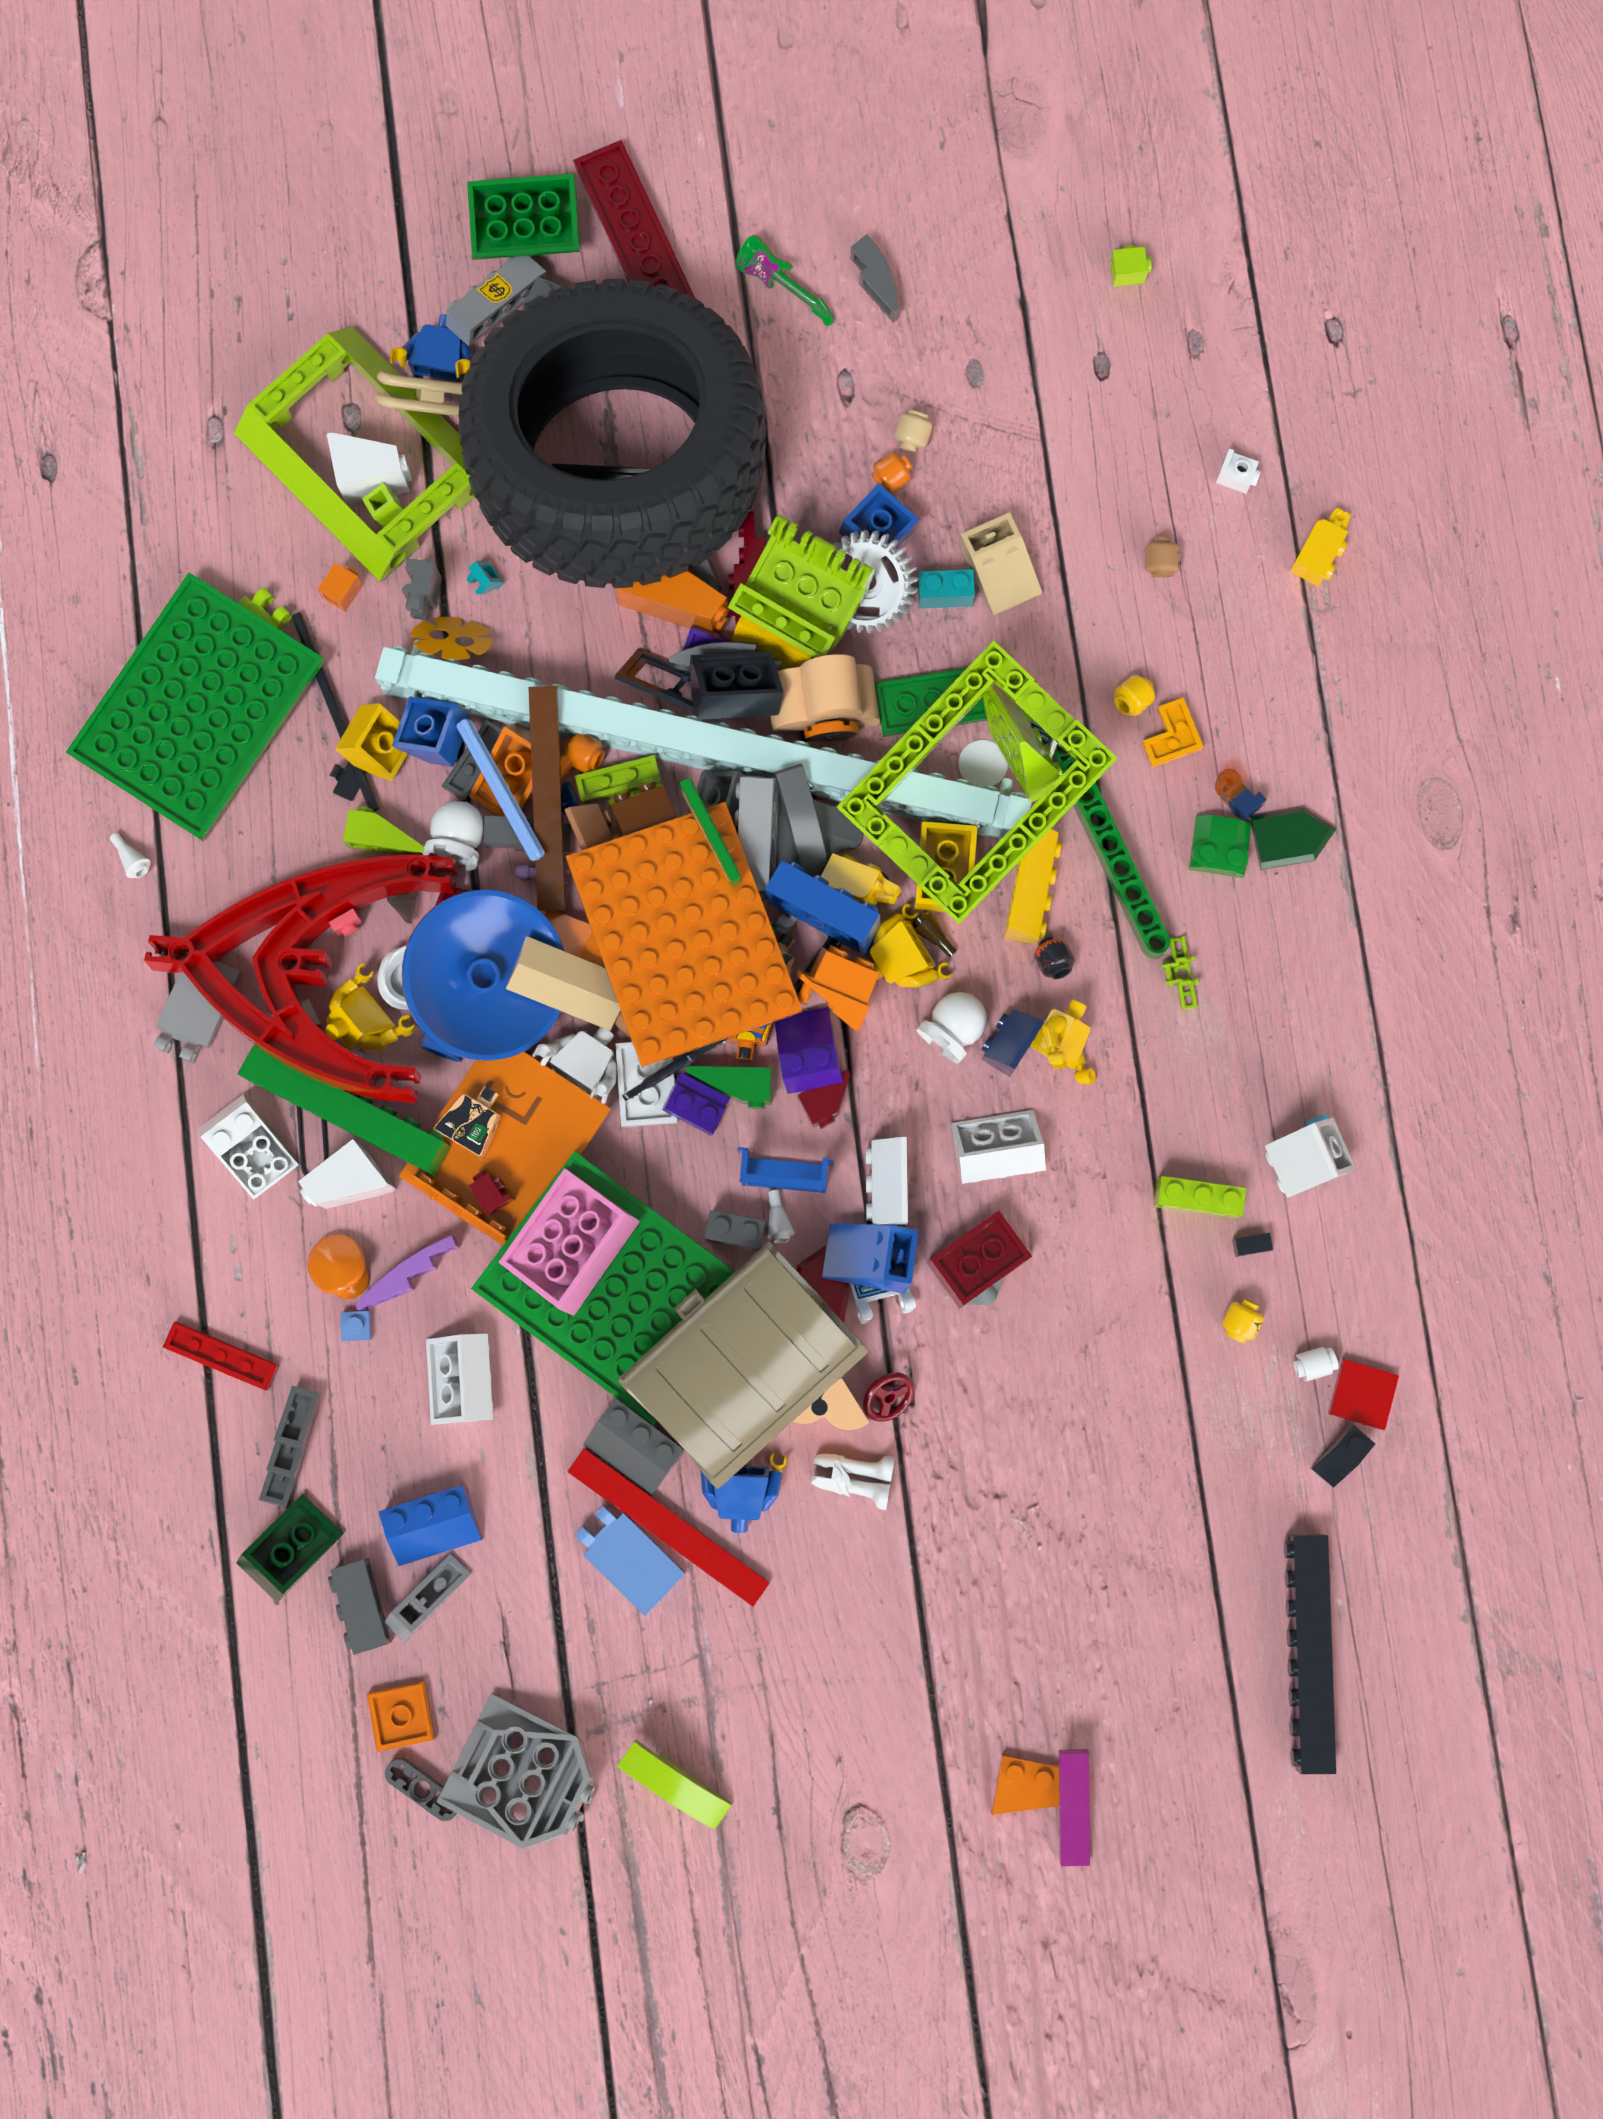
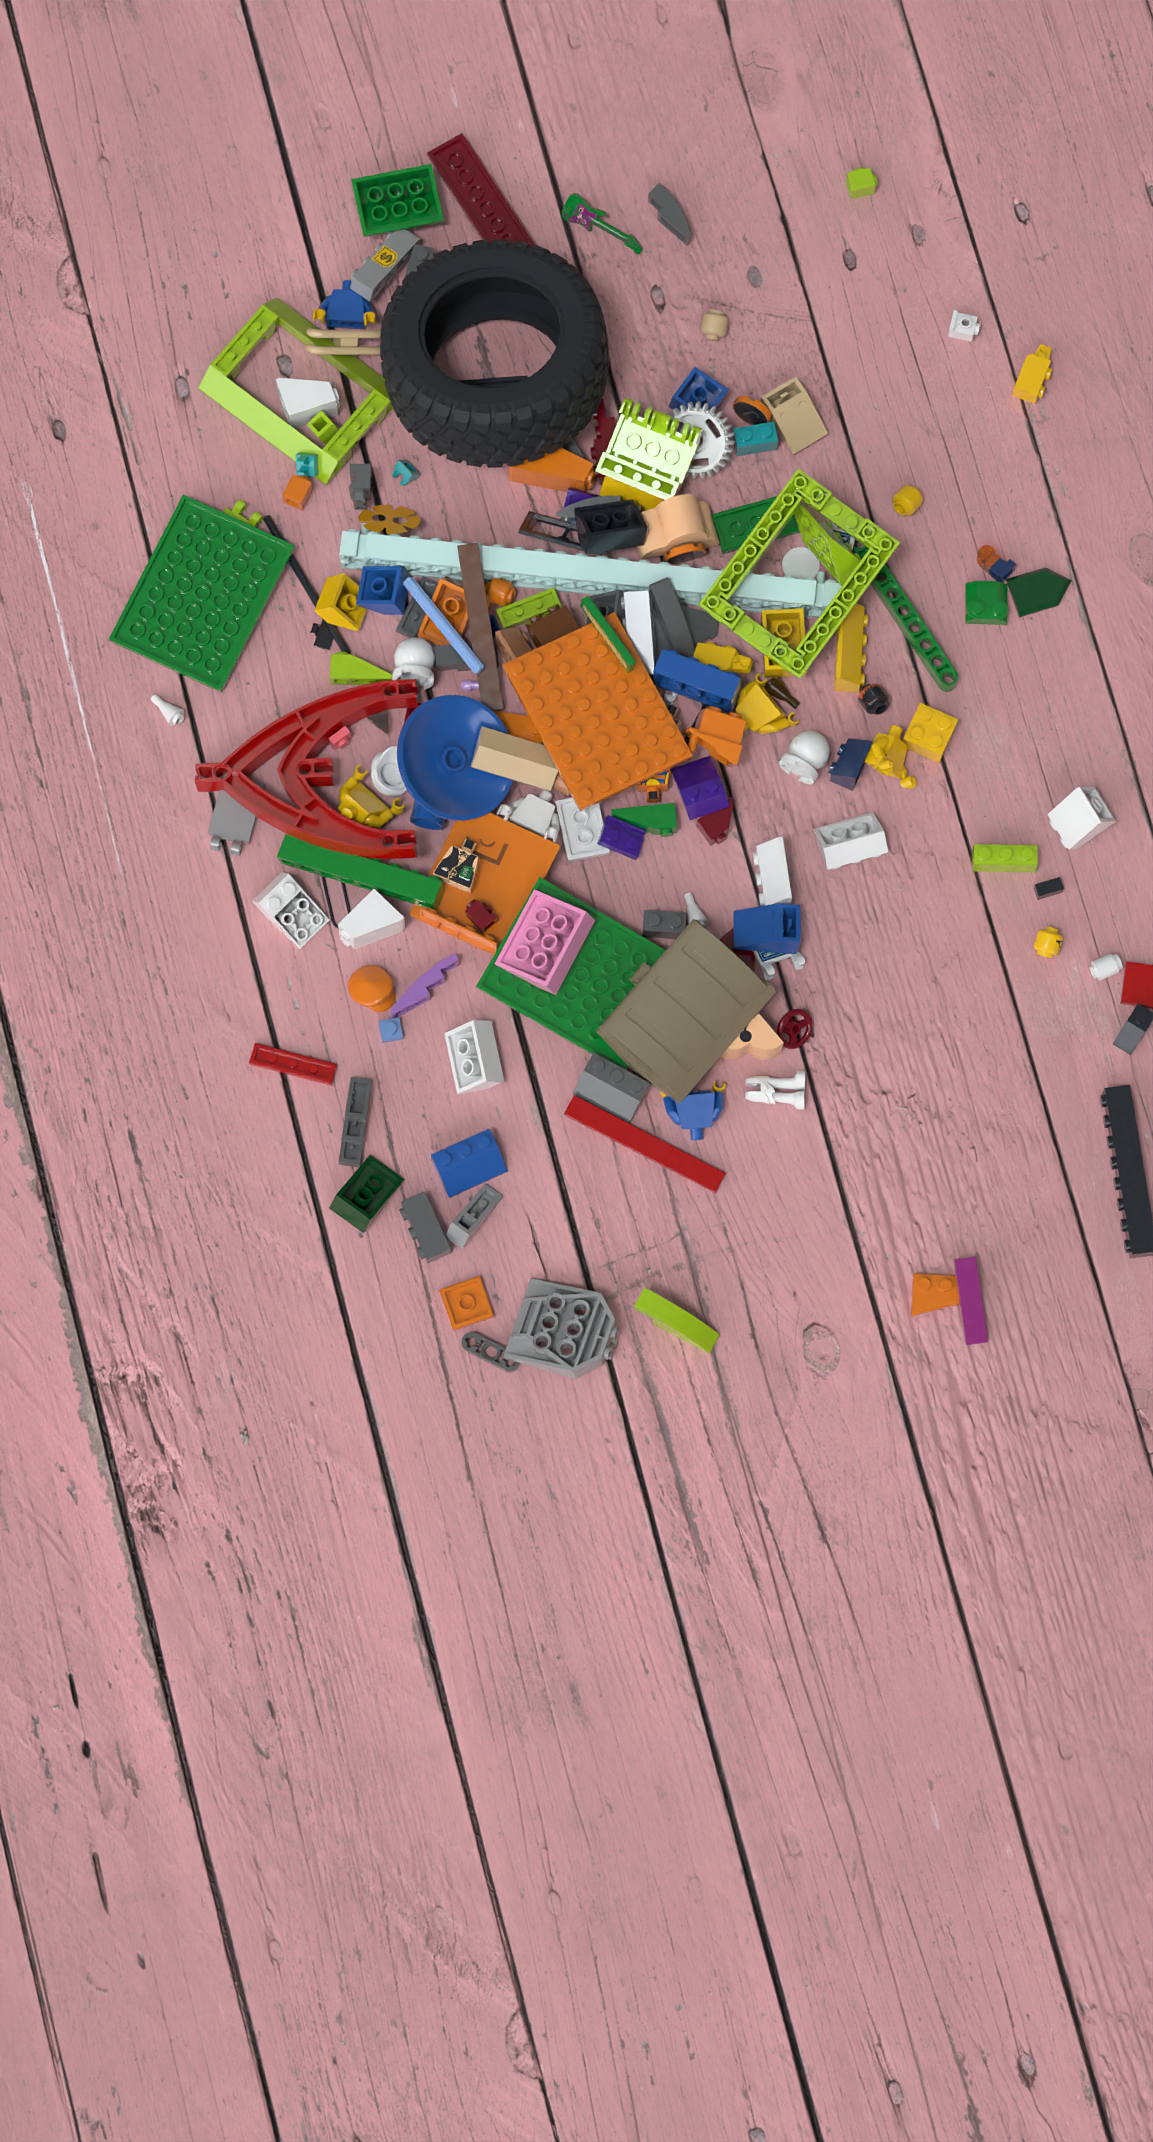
camera: 10 degrees left, 5 degrees down
(356, 552) = (307, 464): none -> teal tile
(630, 1560) = (619, 1170): medium blue tile -> none
(669, 1069) = (602, 810): black piece -> none
(783, 1174) = (694, 881): blue piece -> none
(892, 472) = (702, 357): orange head -> none
(945, 552) = (751, 411): none -> tile
(978, 1262) = (848, 923): dark red piece -> none
(1122, 1013) = (929, 732): none -> yellow brick
(1162, 557) = (914, 396): medium nougat head -> none
(1179, 737) = (945, 526): light orange plate -> none
(1179, 981) = (969, 688): lime piece -> none

